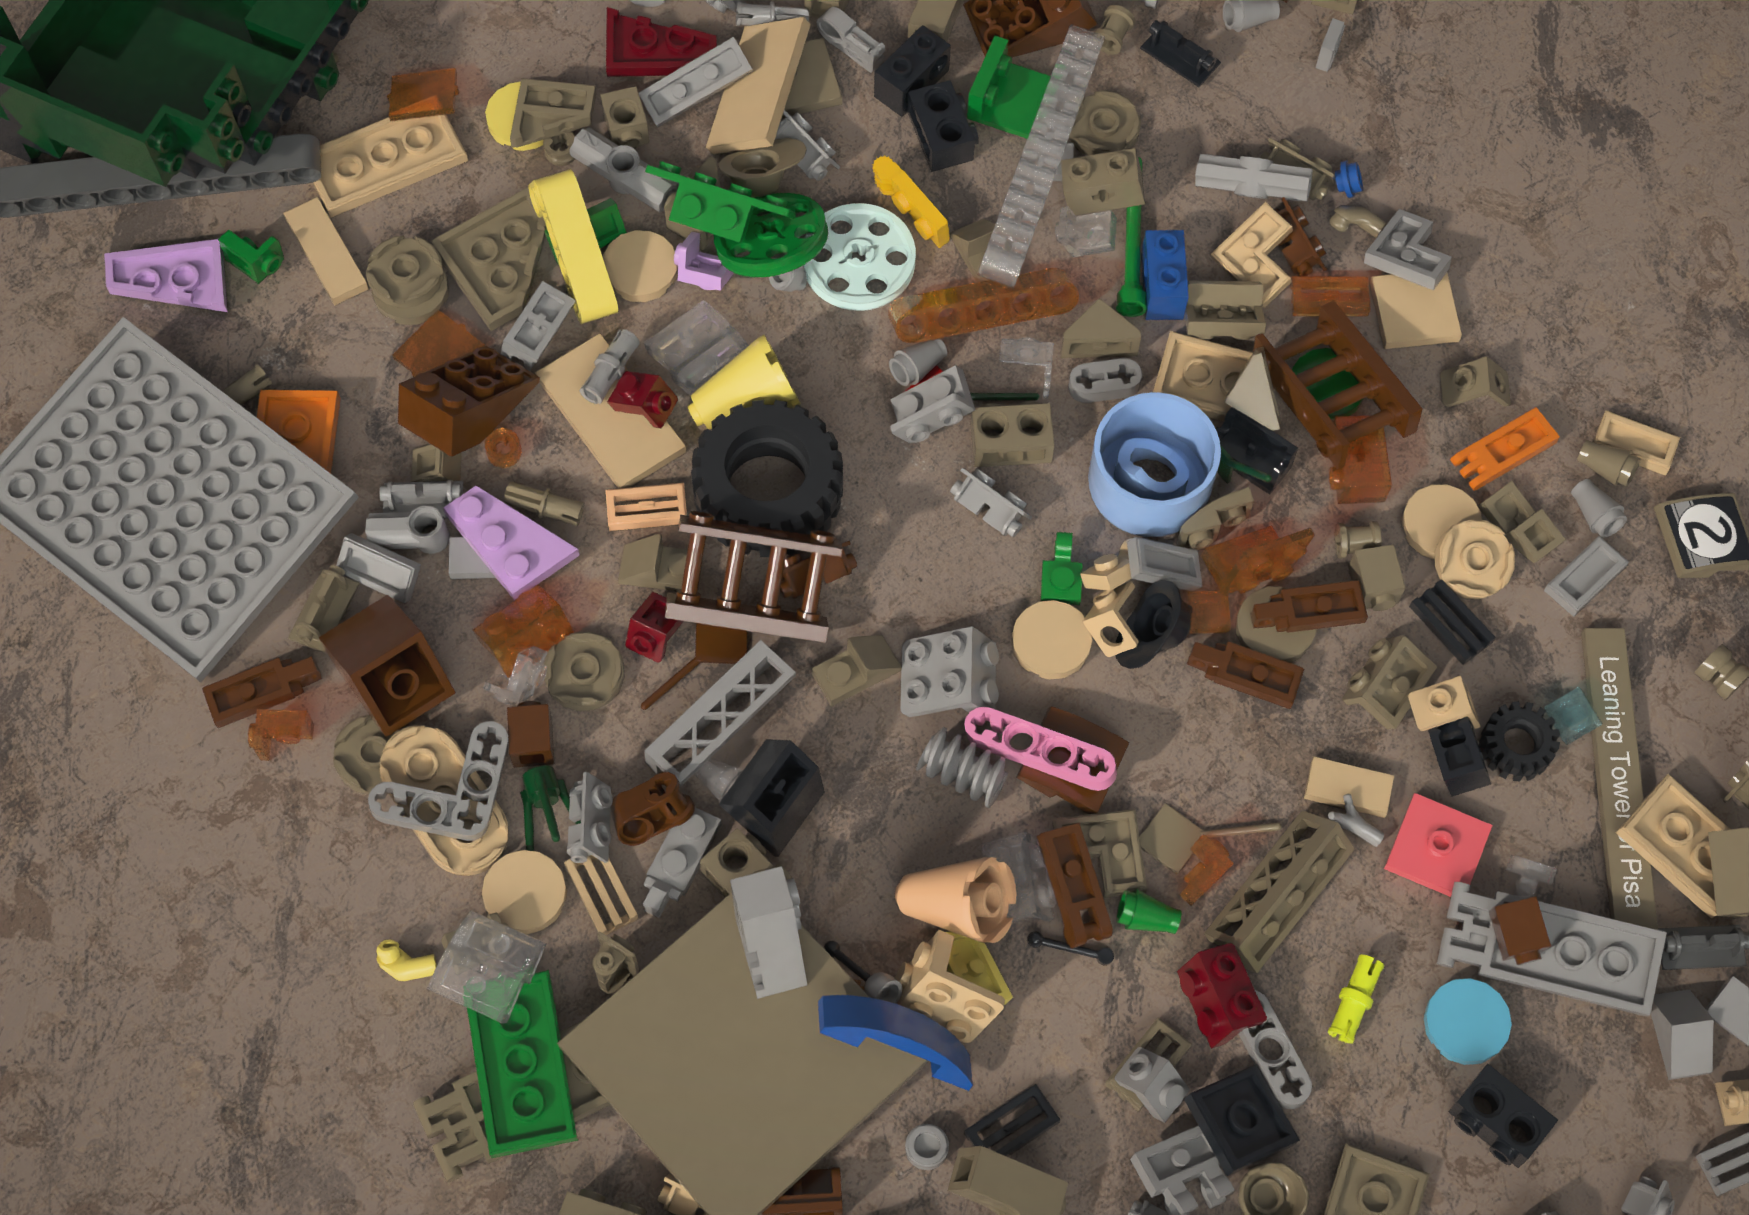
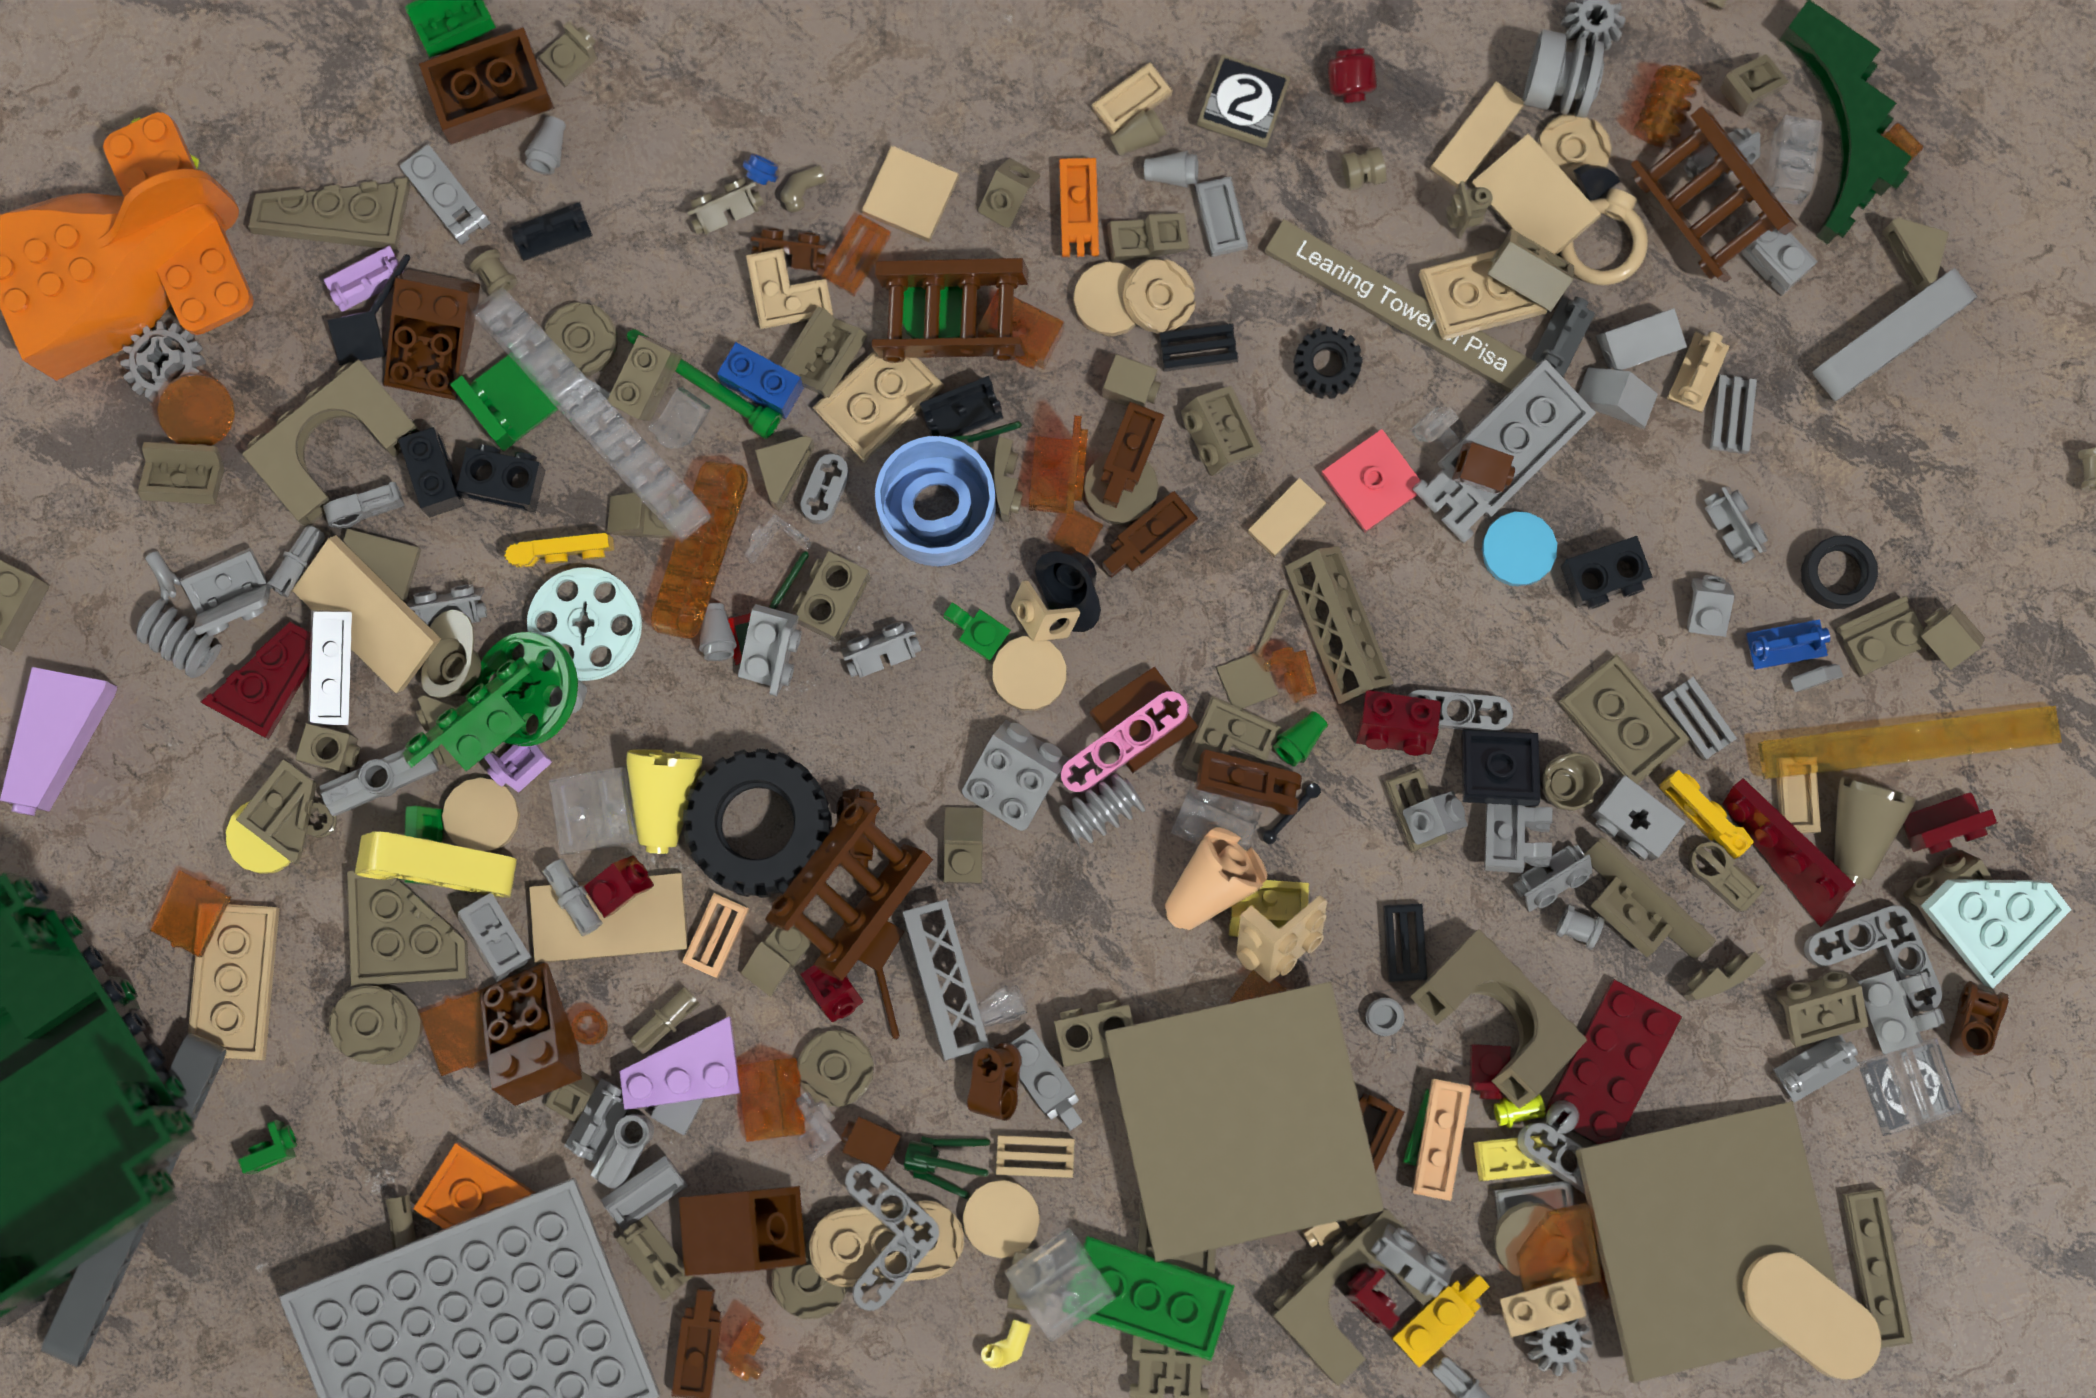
camera: 60 degrees left, 15 degrees up
(171, 274) = (244, 1231): lavender wing -> none
(326, 251) = (300, 1081): tan tile -> none
(591, 804) = (960, 1125): light grey hinge -> none
(614, 963) = (1111, 1181): dark tan hinge -> none
(768, 927) = (1176, 1049): light grey wedge -> none
(775, 793) = (1040, 977): black slope -> none
(858, 1017) = (1294, 992): blue slope -> none
(878, 985) = (1250, 984): light grey hinge -> none
(1108, 571) = (1004, 588): tan plate -> none
(1159, 561) = (1022, 545): light grey tile -> none
(1253, 177) = (714, 248): light grey piece -> none
(1254, 392) = (920, 380): slope -> none
(1330, 45) = (622, 100): light grey tile -> none
(1355, 823) = (1321, 532): light grey bar -> none
(1356, 538) = (1088, 376): dark tan bush -> none
(1356, 998) = (1456, 622): neon yellow pin -> none
(1402, 253) = (856, 175): light grey plate -> none
(1443, 704) = (1274, 406): tan bracket -> none
(1459, 756) = (1307, 416): black brick -> none
(1573, 715) = (1331, 308): clear light blue plate -> none

